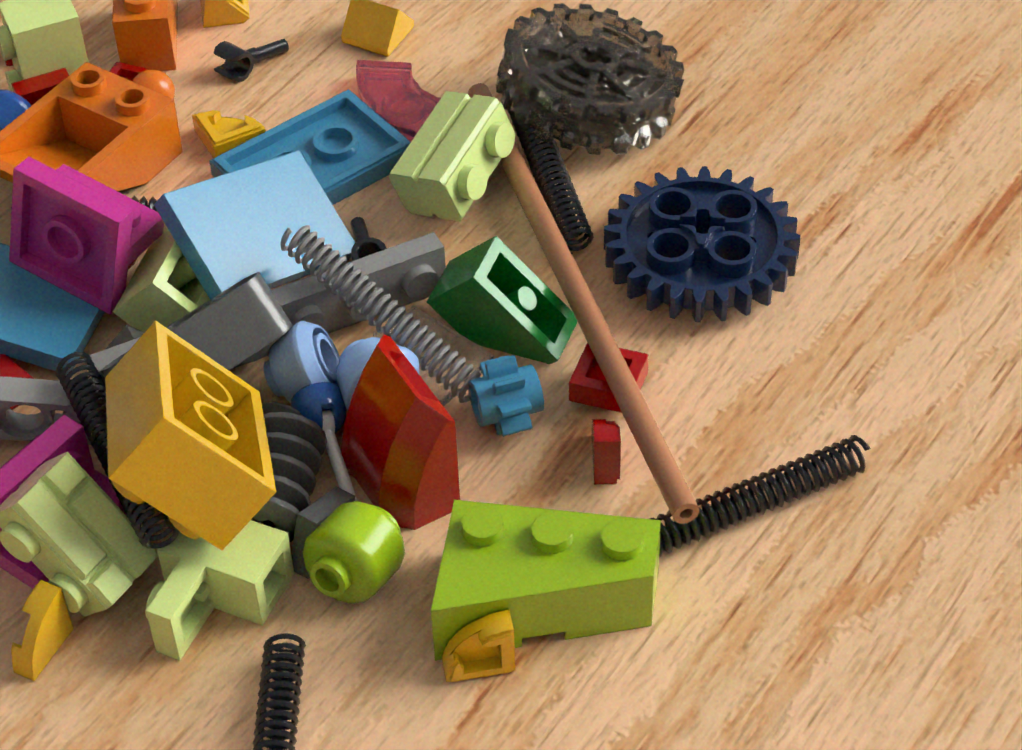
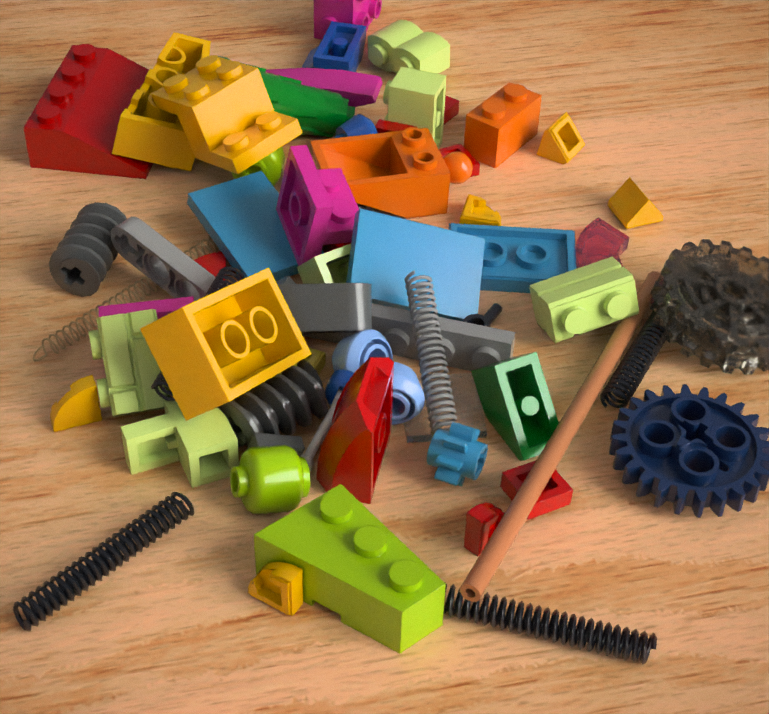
camera: 40 degrees right, 5 degrees down
(241, 62) = (533, 182): black hand -> none

